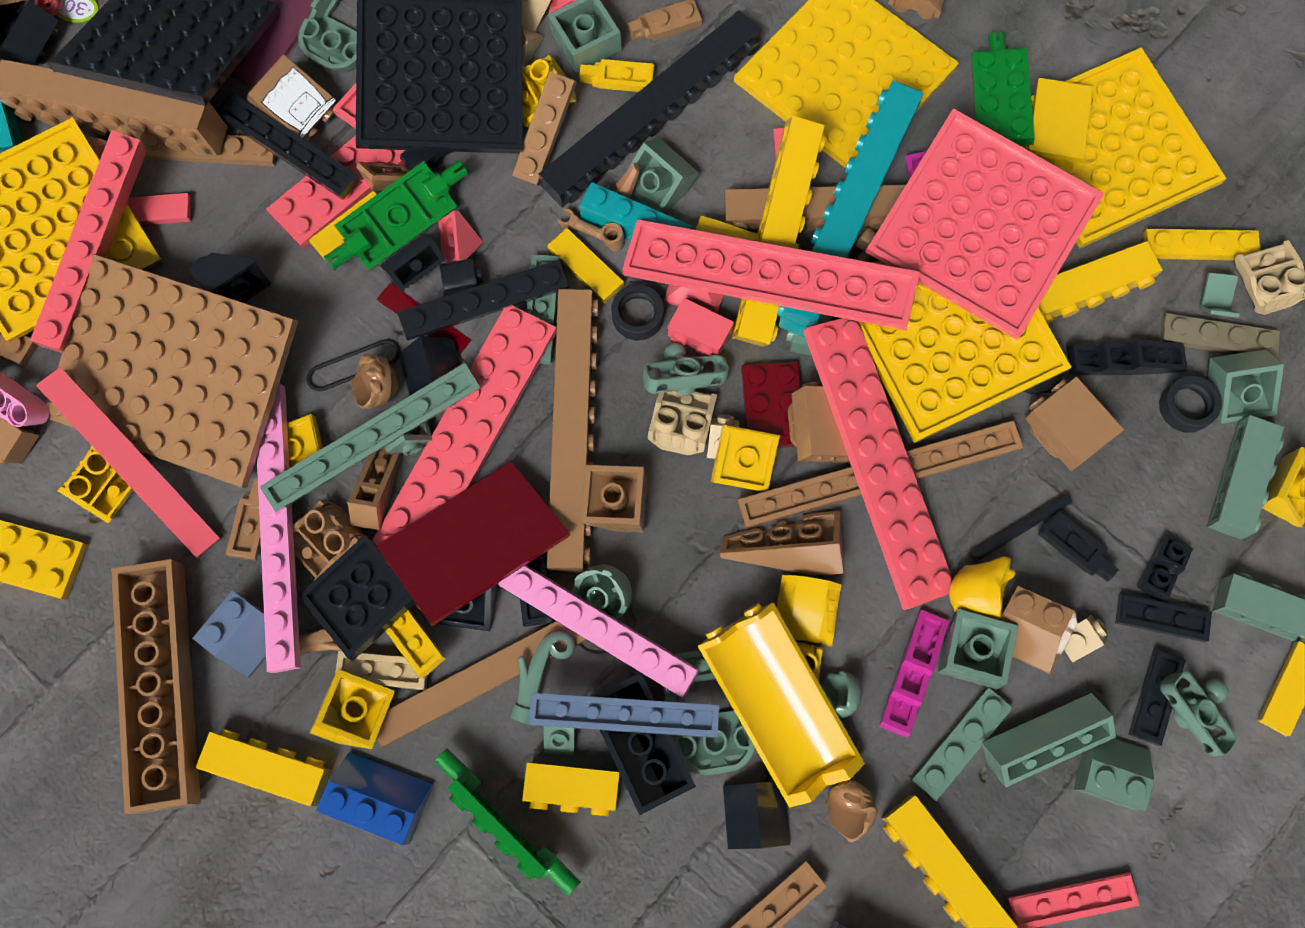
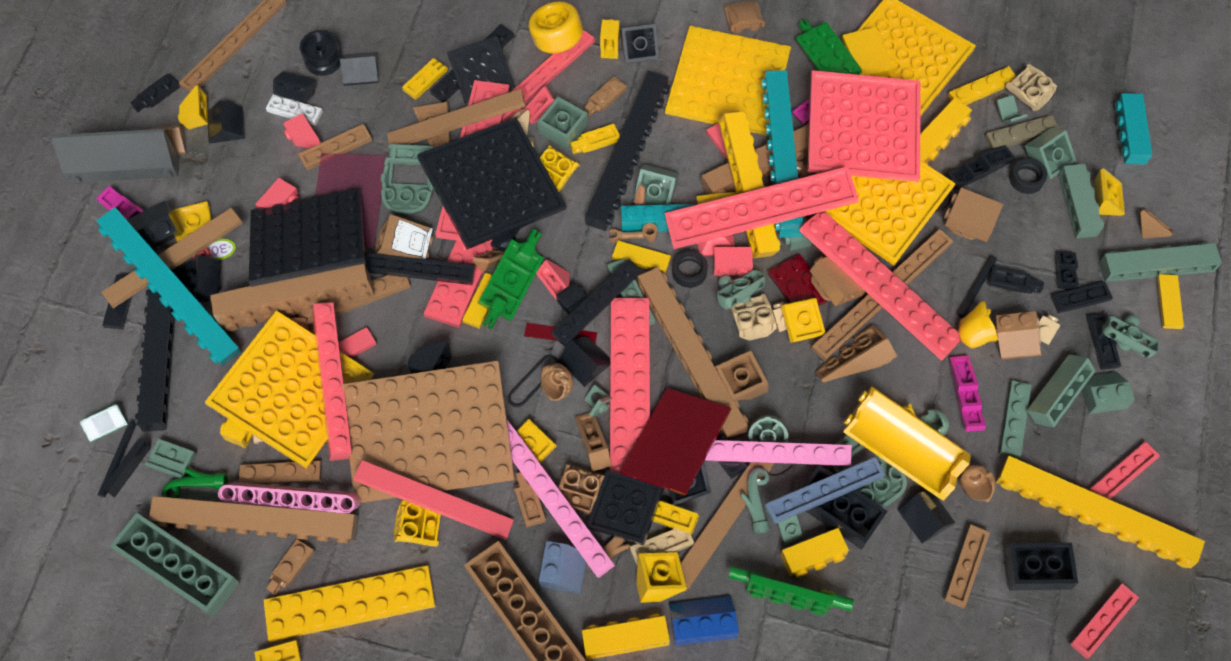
camera: 30 degrees left, 10 degrees down
(369, 438) = (578, 411): sand green plate -> none
(412, 262) = (538, 301): black brick -> none
(544, 127) = (572, 188): medium nougat plate -> none
(809, 608) = (890, 382): yellow slope -> none
(978, 649) = (995, 361): sand green slope -> none

